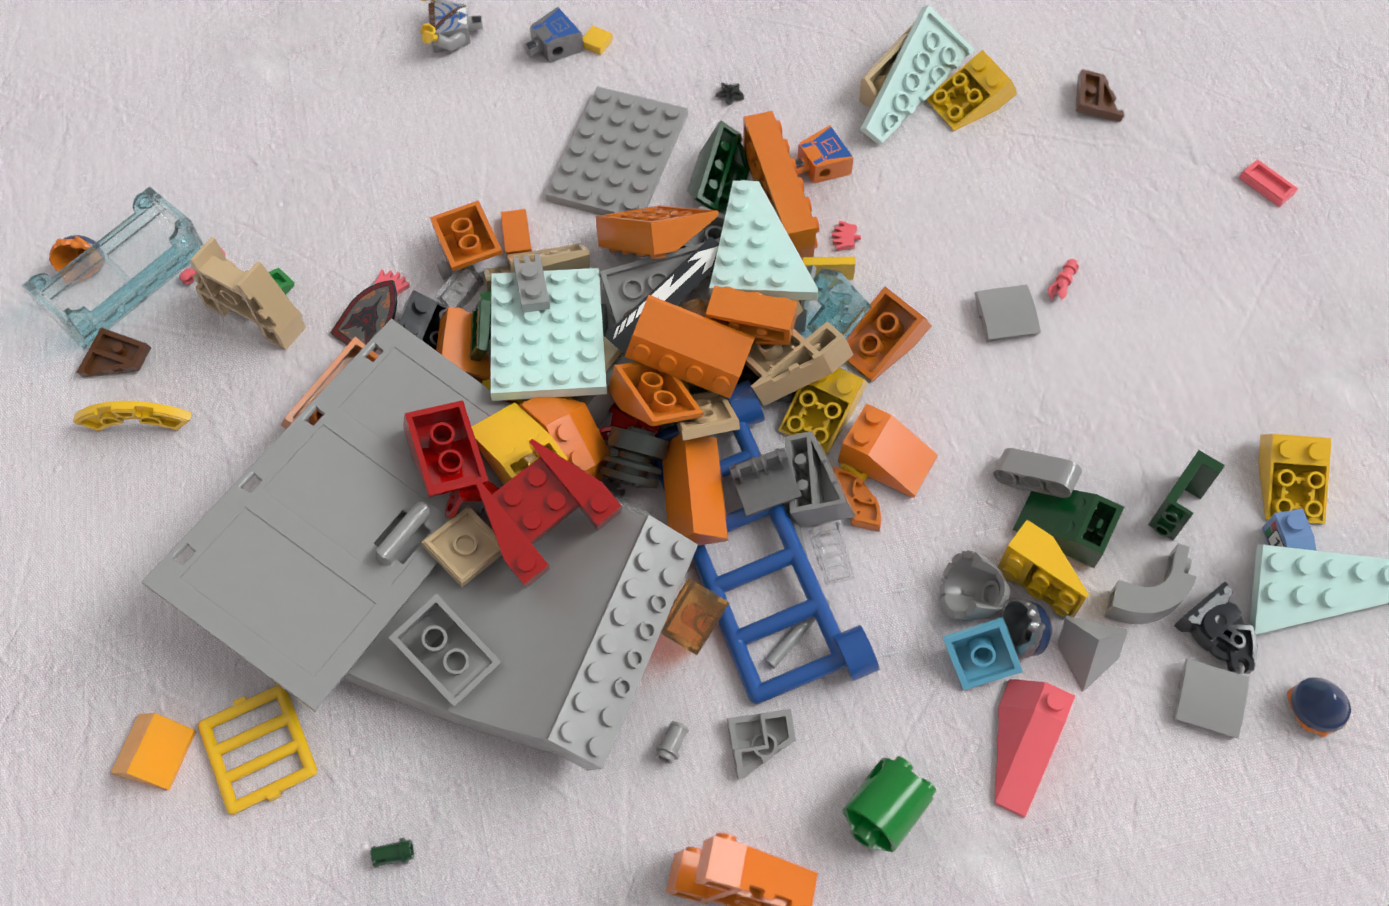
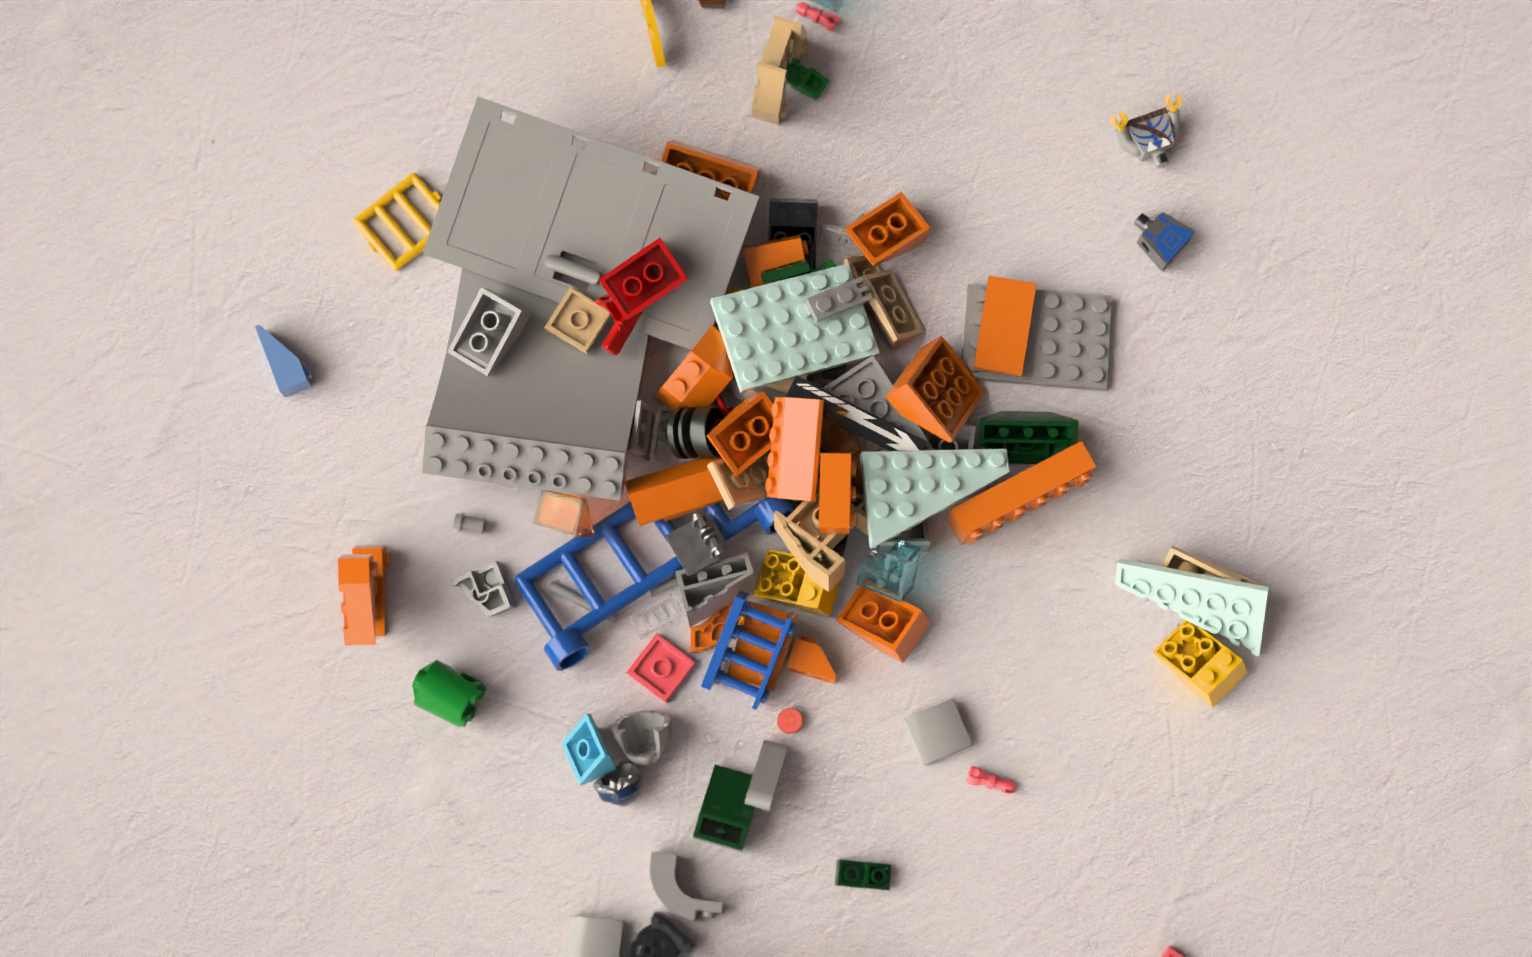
camera: 75 degrees right, 15 degrees up
(153, 751) = (386, 149): light orange slope -> none
(367, 313) = (791, 174): shield -> none
(392, 853) = (346, 343): dark green pin -> none
(399, 283) = (839, 179): coral piece -> none
(506, 438) = (671, 333): yellow slope -> none
(516, 231) = (920, 271): orange tile -> none
(537, 503) = (614, 363): red wedge -> none
(597, 40) = (1175, 280): yellow tile -> none
(601, 168) = (1004, 326): none -> orange tile
(731, 93) = (1141, 425): pearl dark grey plant -> none
(824, 156) = (1077, 528): orange torso -> none
(845, 236) = (993, 571): coral piece -> none
(845, 265) = (946, 558): yellow tile -> none
(872, 465) = (733, 631): none -> blue fence
(892, 563) = (661, 668): none -> coral tile
(915, 406) = (810, 660): none -> orange slope
(974, 446) = (789, 720): none -> coral tile
(1028, 731) = (530, 797): coral wedge -> none
(1043, 570) = (676, 785): yellow slope -> none
(1090, 648) = (616, 841): light grey slope -> none
(1096, 97) = (1231, 789): reddish brown wing -> none
(1150, 411) = (862, 875): none -> dark green slope
(1196, 480) = (776, 899): dark green panel -> none

